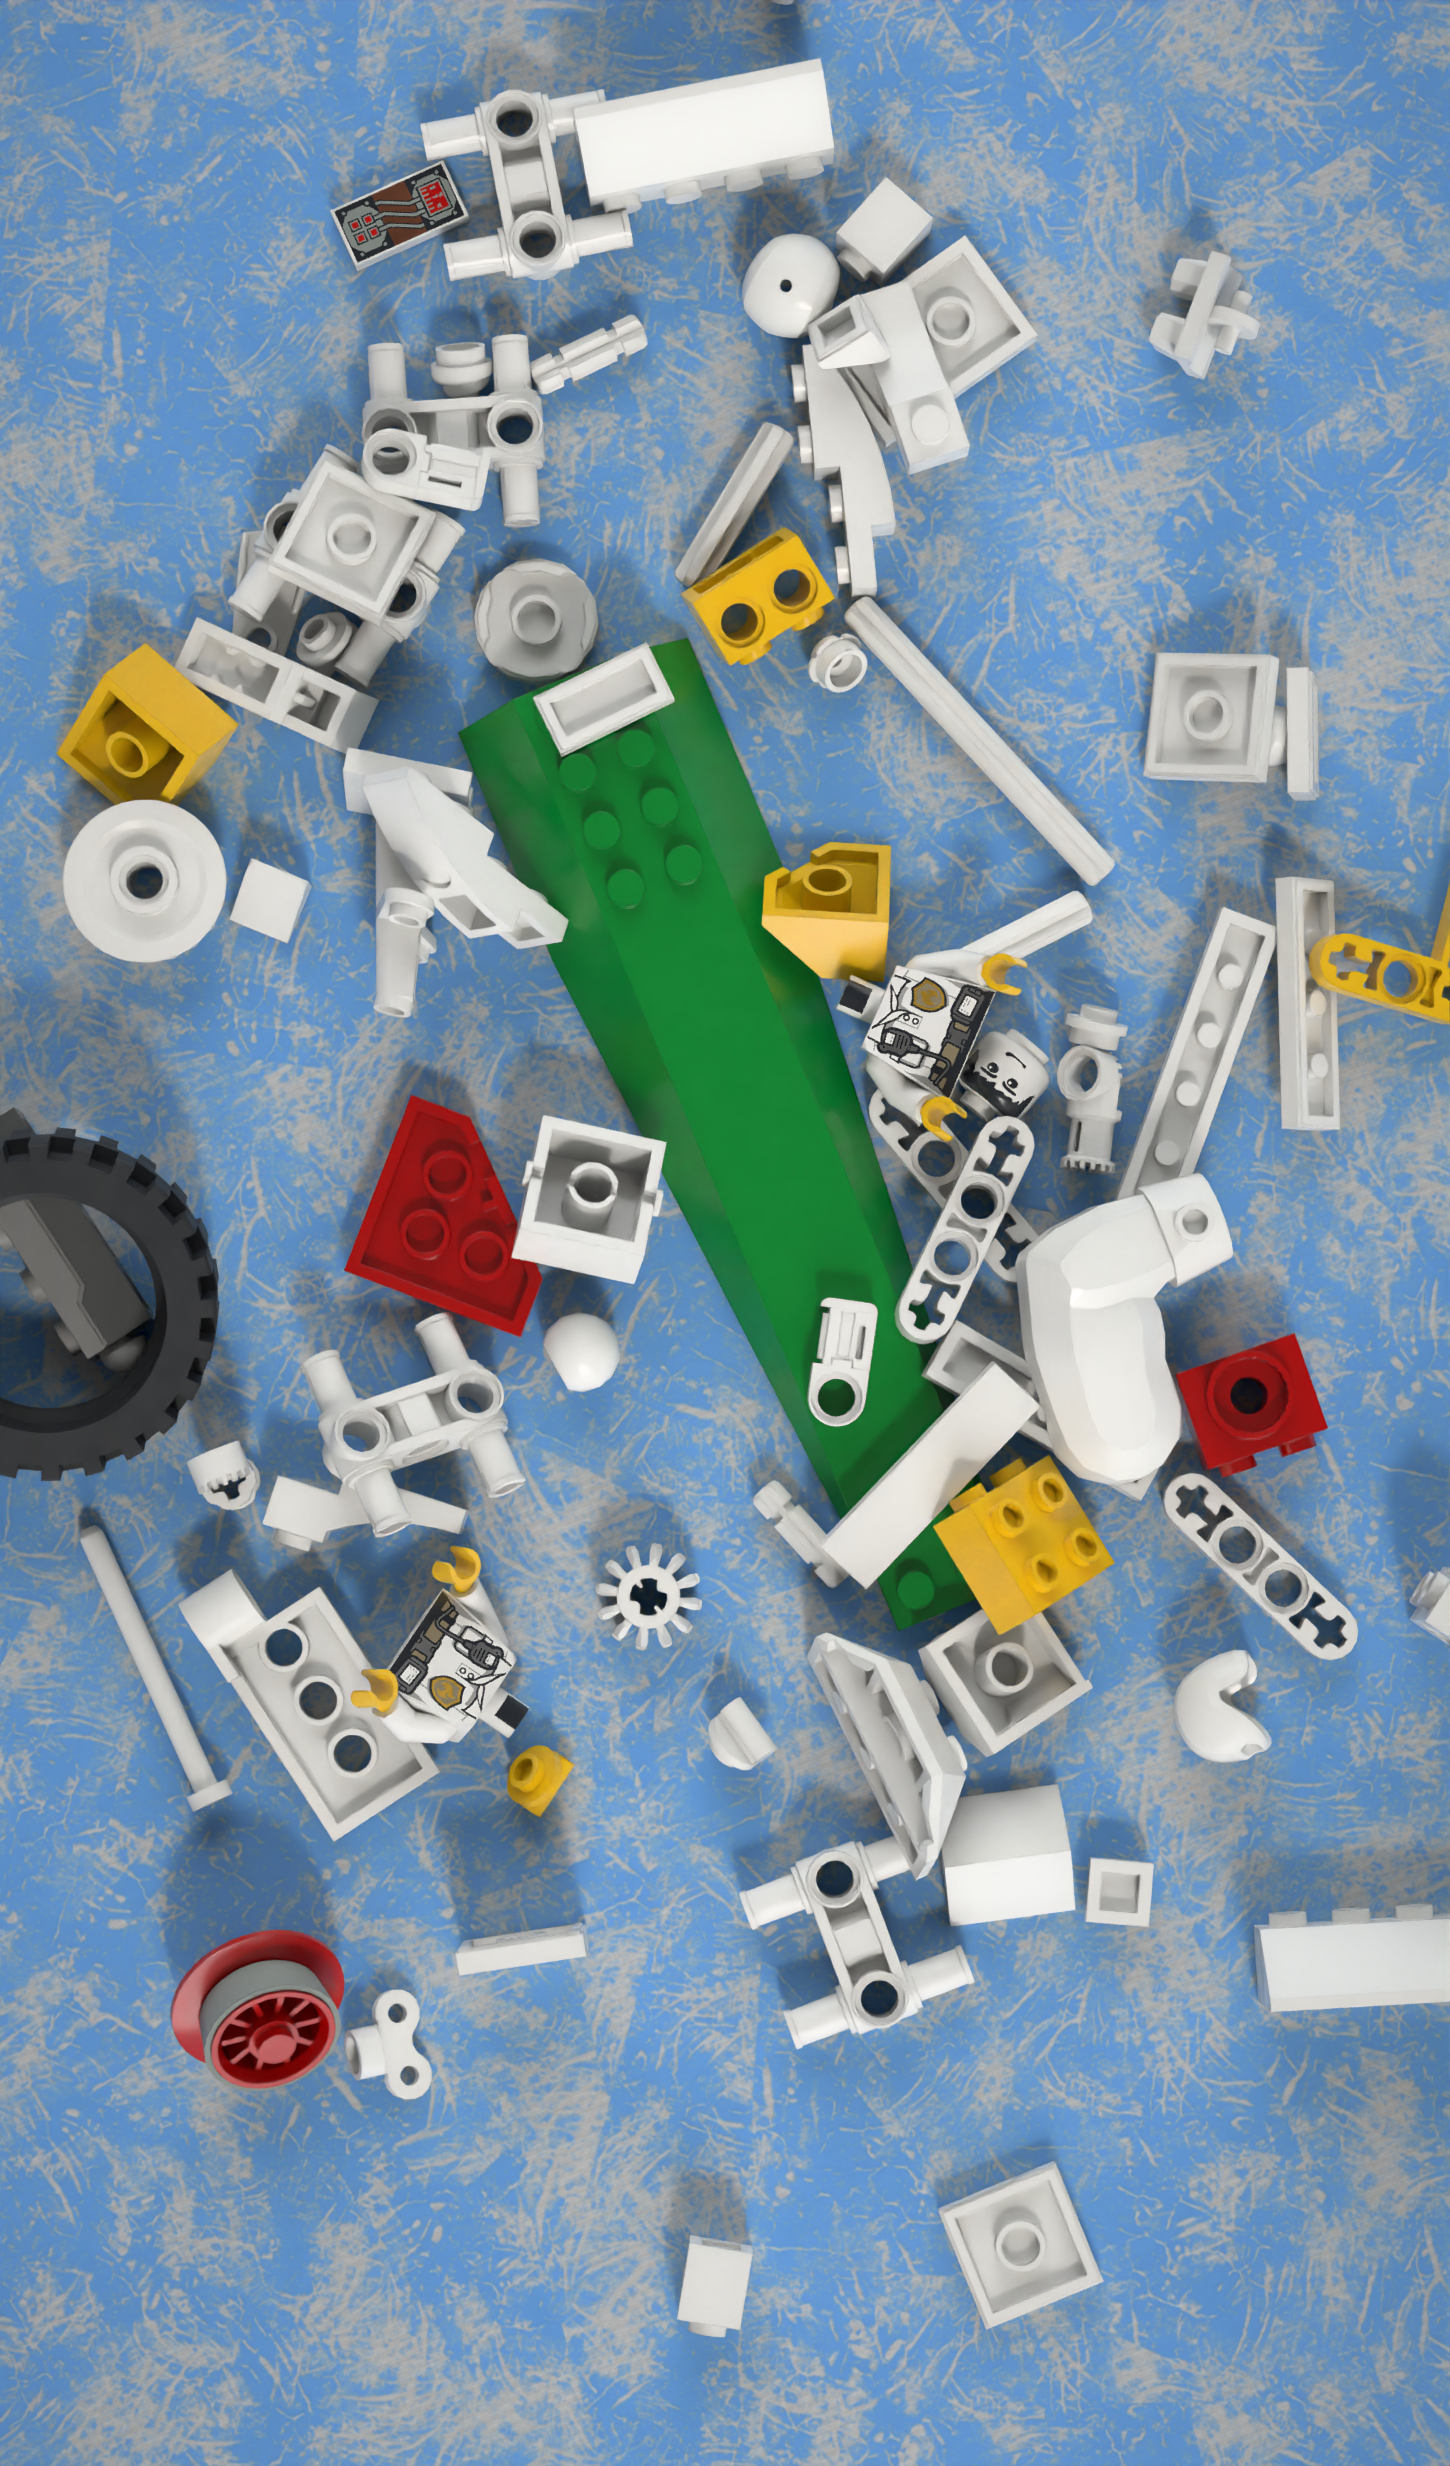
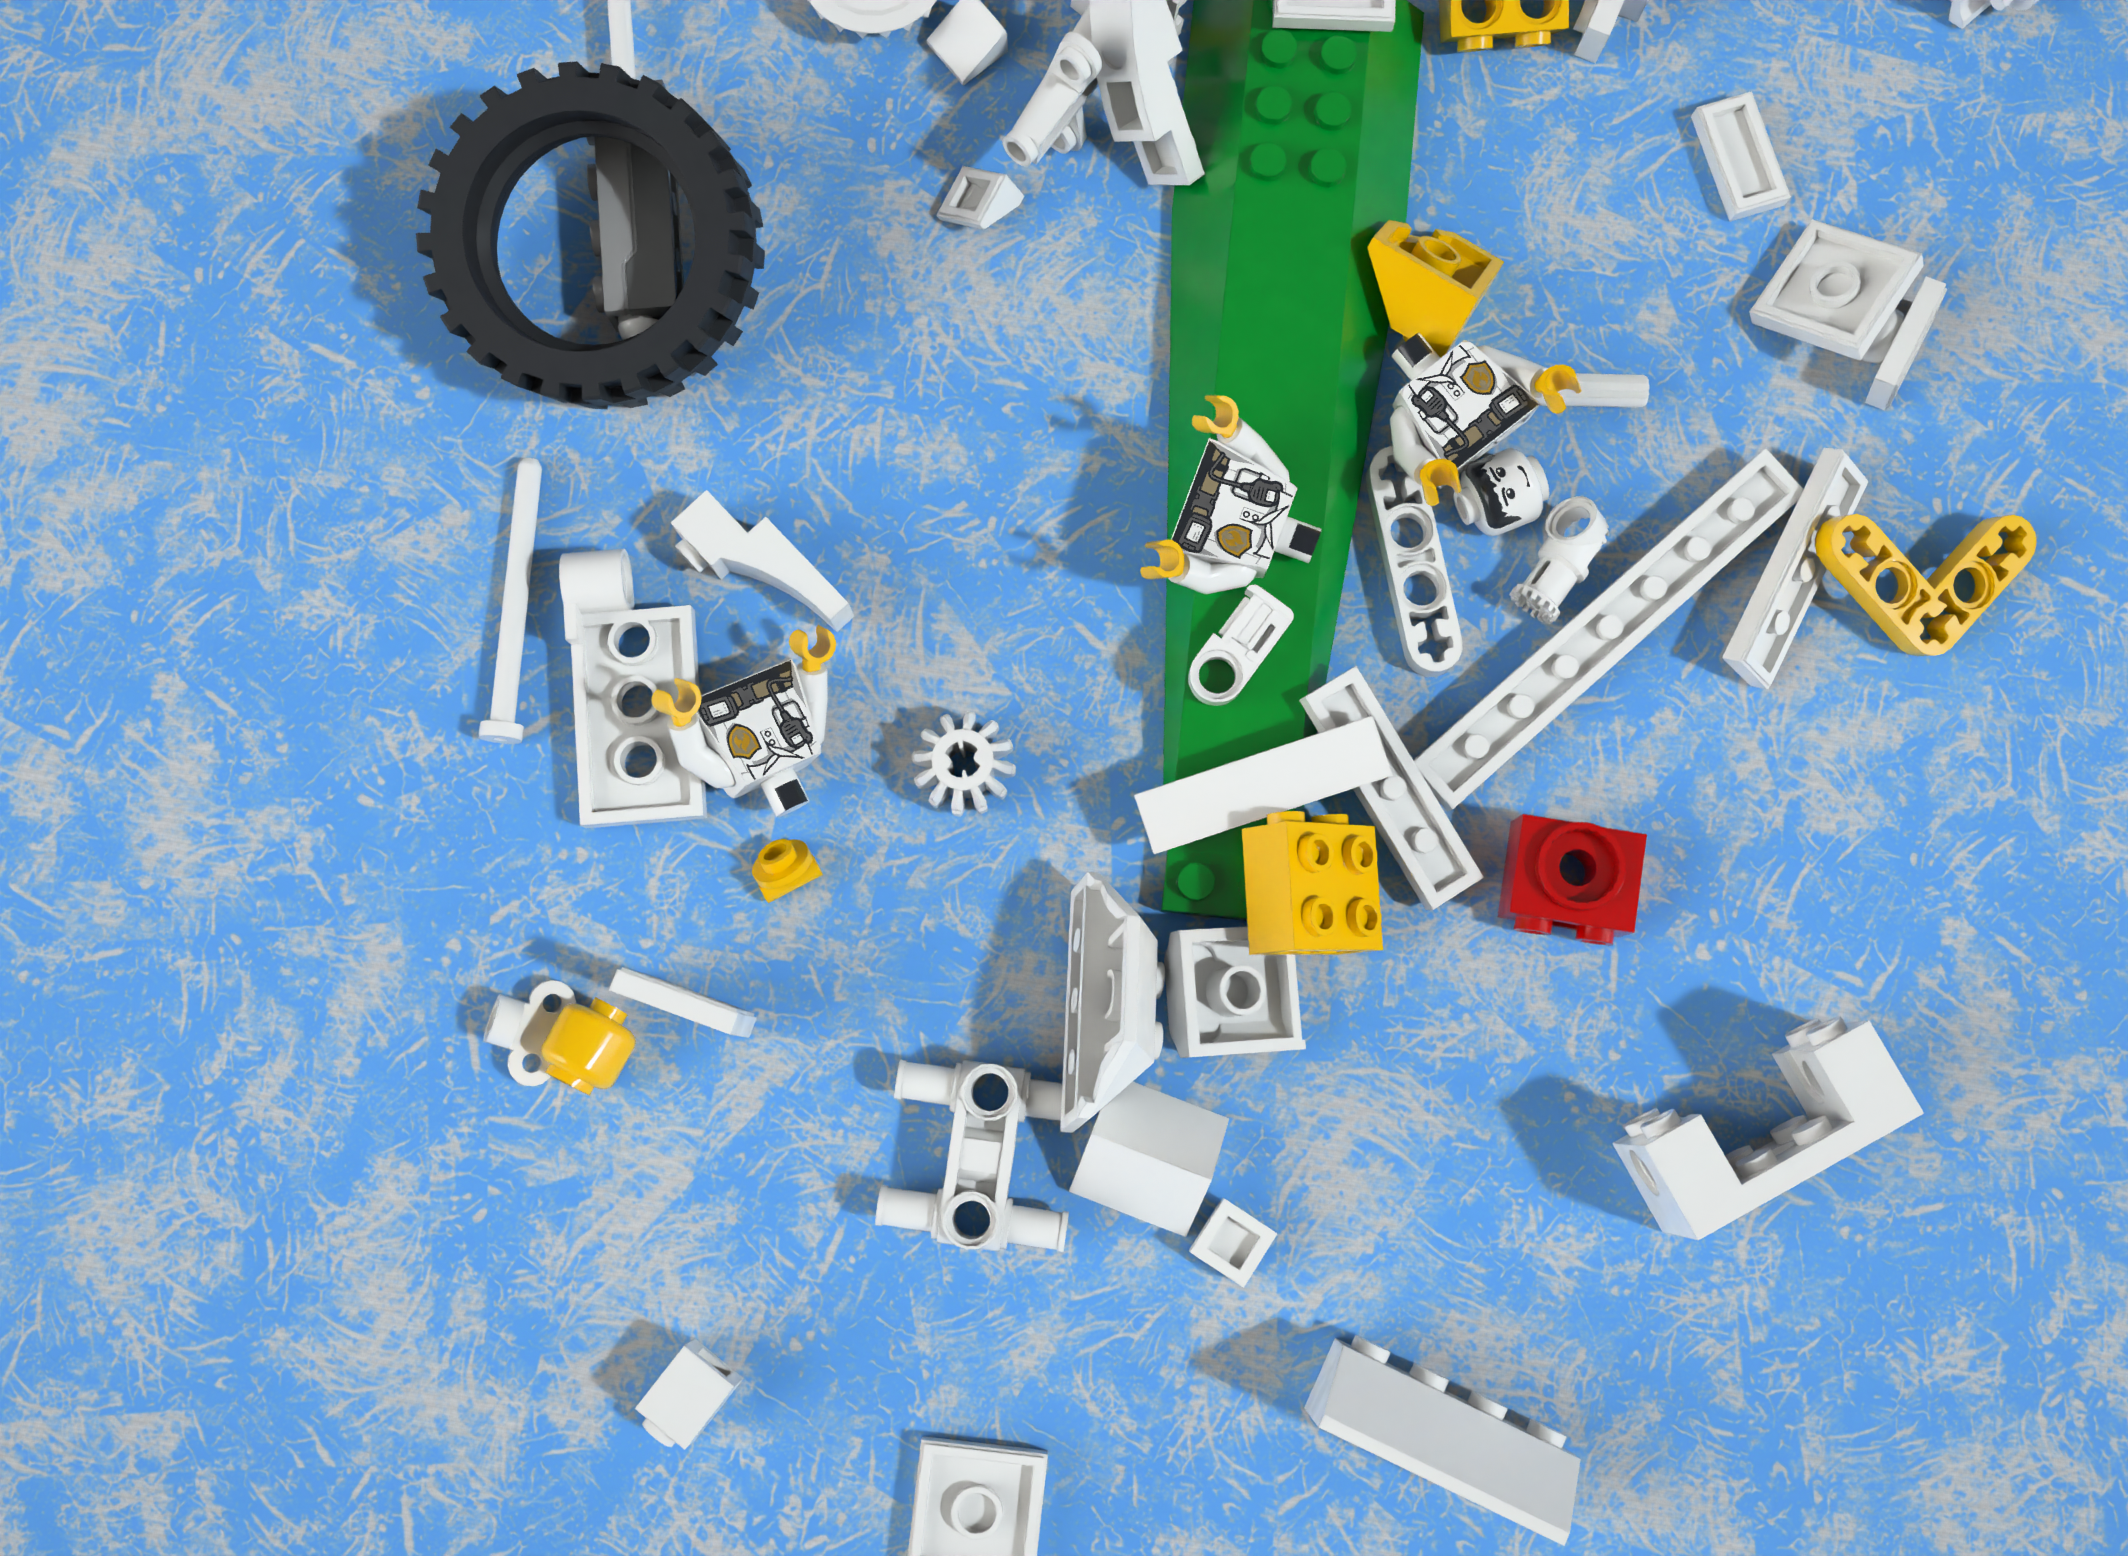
camera: 30 degrees right, 5 degrees down
(218, 1468) = (655, 454): white connector -> none
(261, 2009) = (430, 929): red piece -> none
(366, 1052) = (979, 198): none -> white slope
(412, 1424) = (842, 507): white piece -> none
(445, 1224) = (965, 369): red plate -> none
(454, 2033) = (588, 1046): none -> yellow head
(583, 1350) = (1022, 529): white piece -> none
(589, 1199) = (1094, 400): white brick -> none
(738, 1737) = (975, 925): white plate -> none
(773, 1246) = (1232, 511): none -> torso
(799, 1531) = (1122, 781): white axle -> none
(837, 663) = (1545, 100): white plate -> none
(959, 1227) = (1401, 594): white beam -> none
(979, 740) = (1624, 215): white axle -> none
(1058, 622) = (1740, 156): none -> white tile
(1096, 1027) = (1604, 490): white plate -> none
(1098, 1332) = (1479, 738): white piece -> none
(1210, 1719) = (1394, 1132): white helmet -> none
(1265, 1560) = (1495, 1028): white beam -> none

